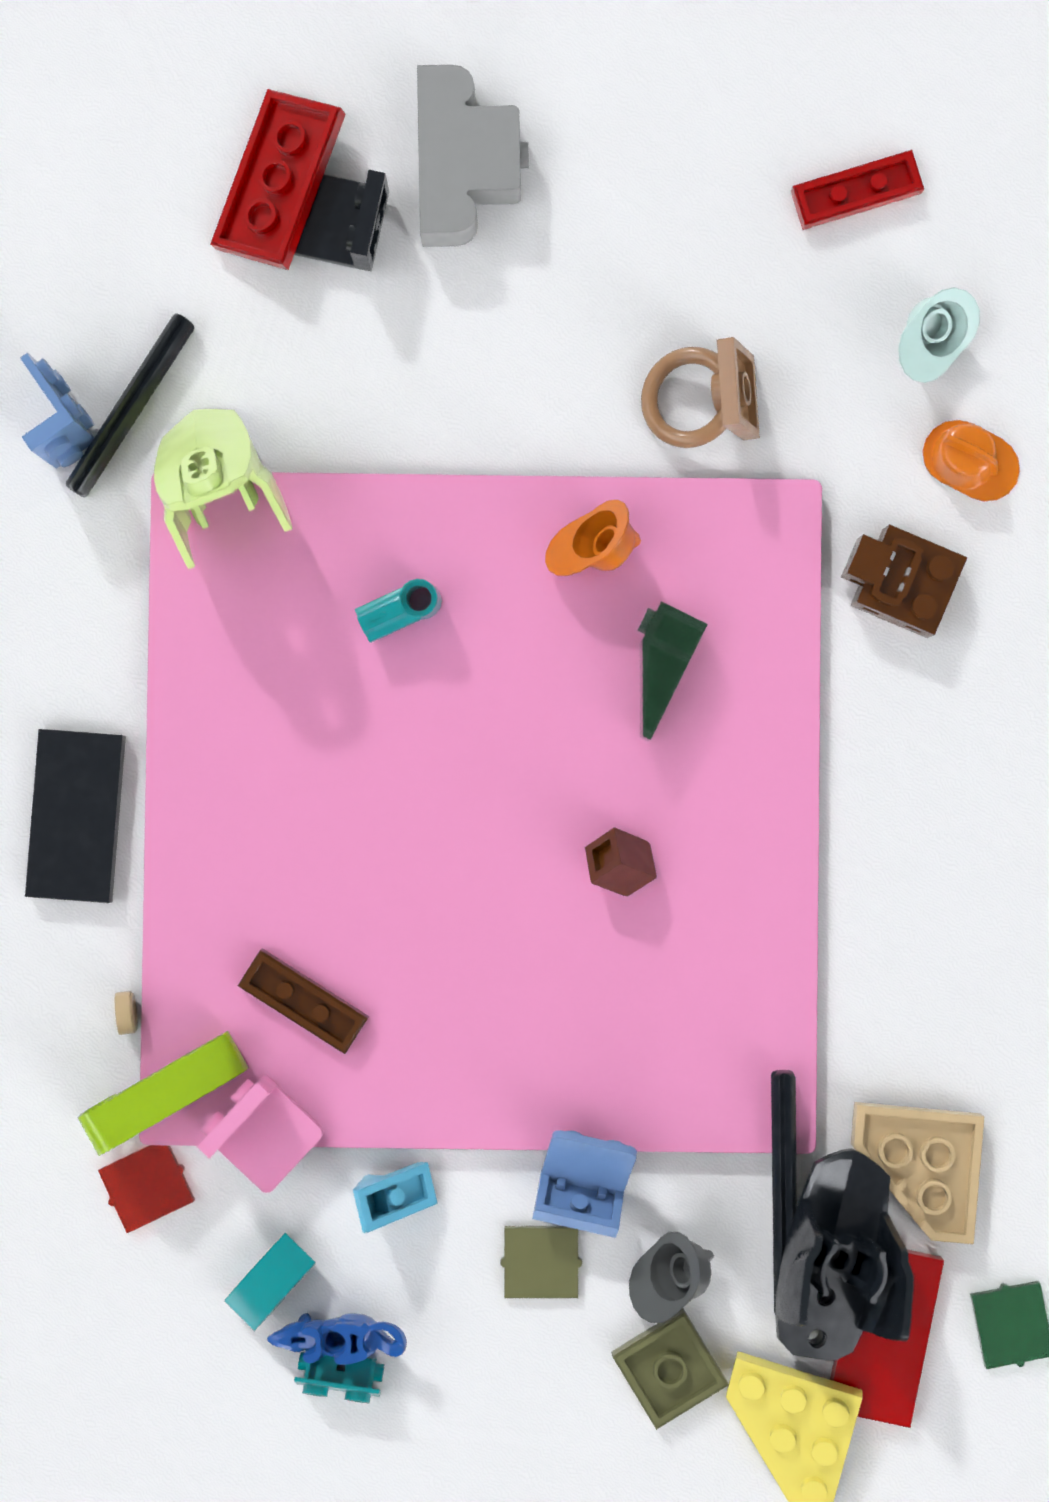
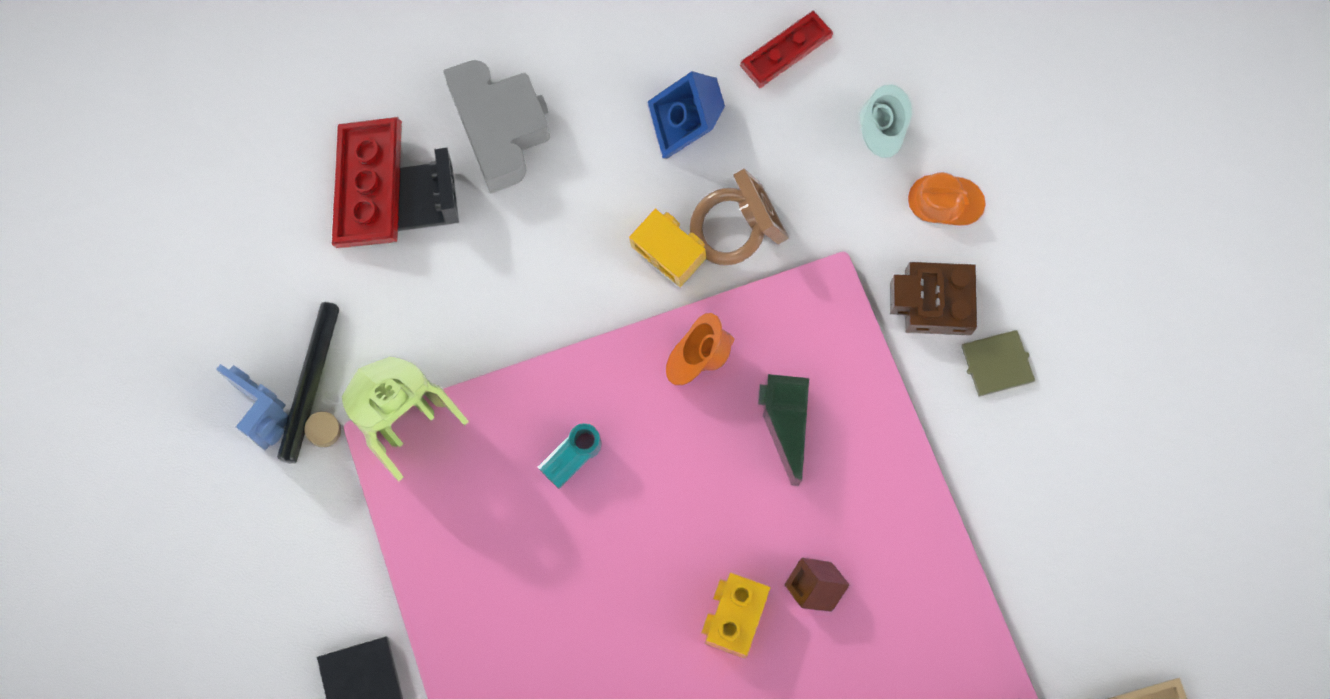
camera: 25 degrees left, 15 degrees down
(128, 469) = (322, 429): none -> tan tile
(516, 861) = (736, 615): none -> yellow brick
(608, 397) = (668, 246): none -> yellow brick
(697, 230) = (685, 111): none -> blue slope
(943, 683) = (998, 363): none -> olive piece

